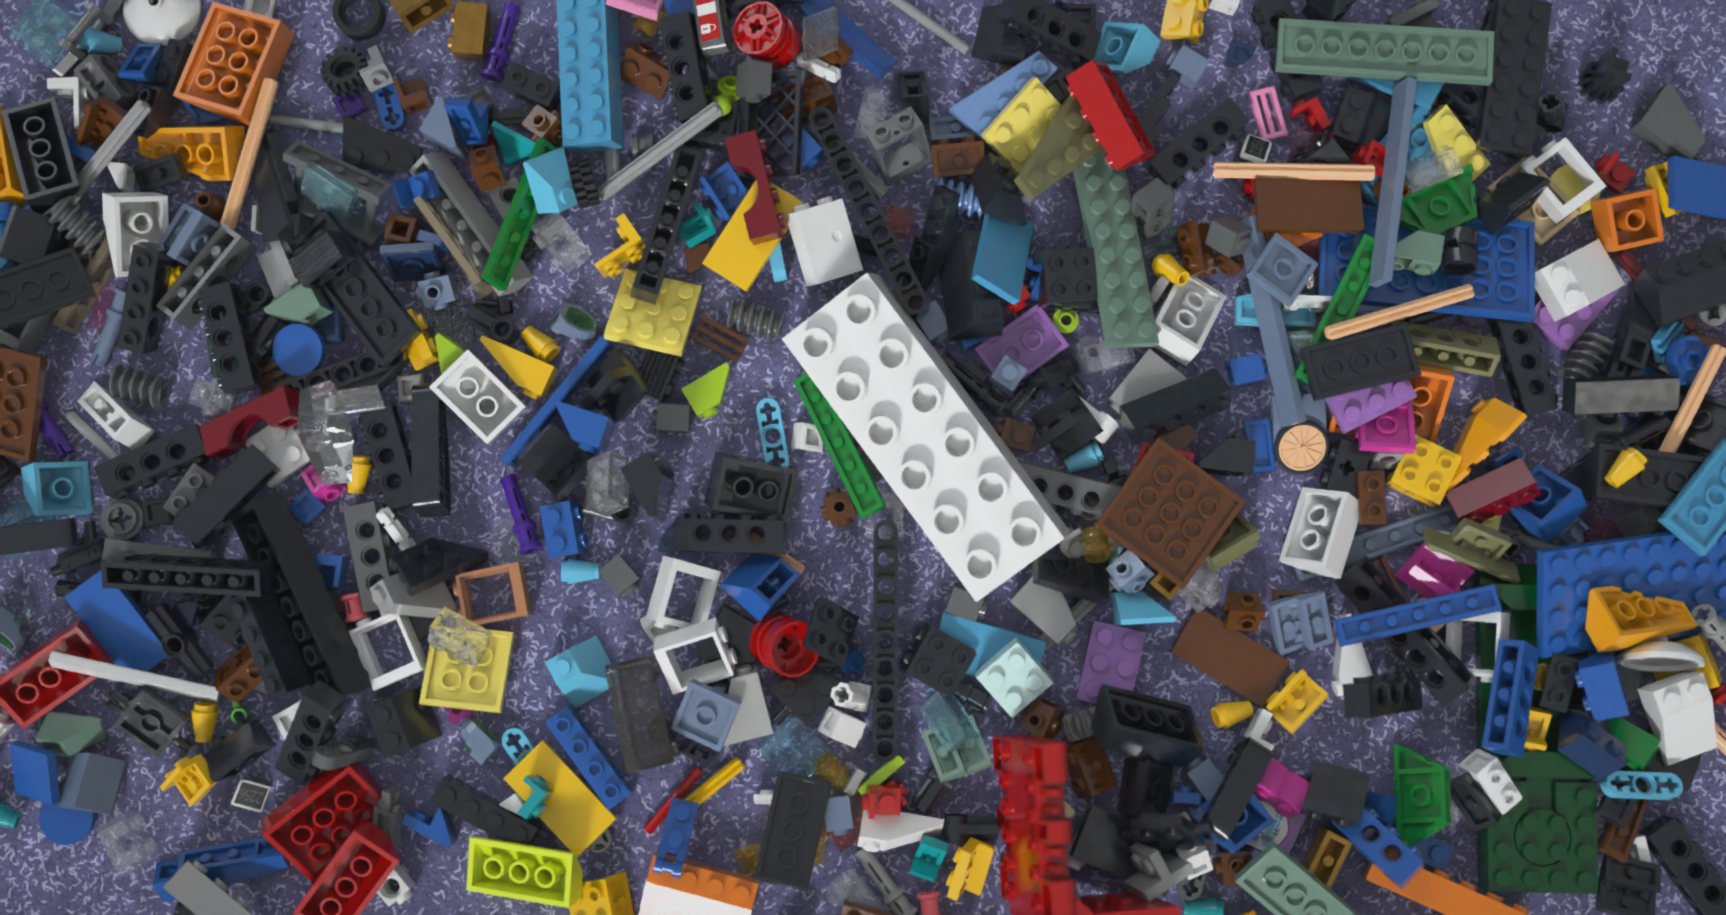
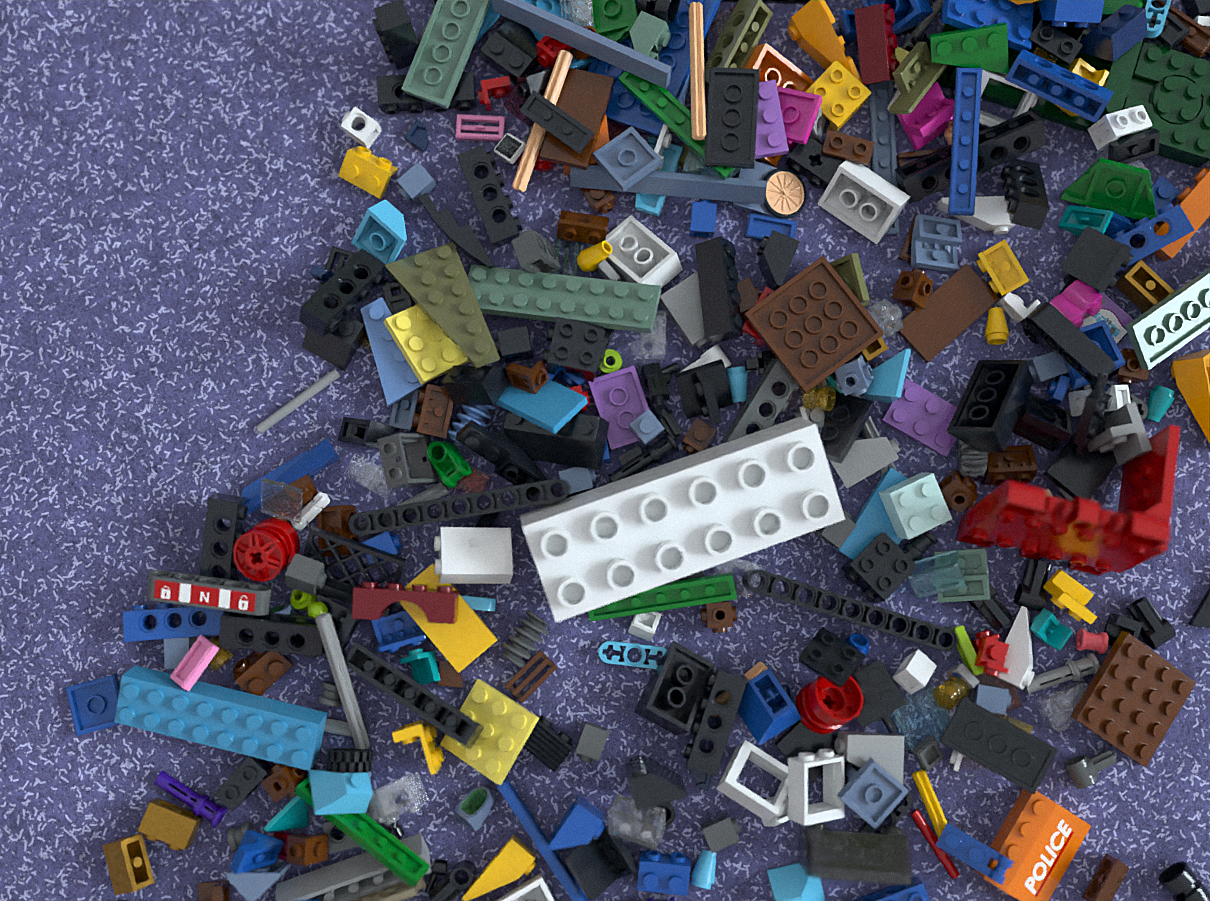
camera: 75 degrees left, 0 degrees up
(508, 116) = (262, 811): black axle -> none
(540, 344) = (487, 843): yellow cone -> none
(616, 387) = (548, 786): black bracket -> none
(708, 391) = (577, 702): lime slope -> none
(748, 856) = (1003, 789): clear yellow slope -> none
(762, 766) = (928, 753): none -> dark grey tile
(852, 695) = (890, 654): white piece -> none
(909, 191) = (450, 466): none -> green piece
(1019, 237) = (526, 378): none -> reddish brown bracket
(1051, 216) = (514, 345): none -> black brick
(1110, 115) = (441, 264): red slope -> none
(1228, 236) = (581, 195): dark grey brick -> none
(1295, 184) = (557, 122): none -> black plate
(1380, 773) = (1078, 218): none -> teal slope
(1521, 594) = (972, 48): none -> green wing

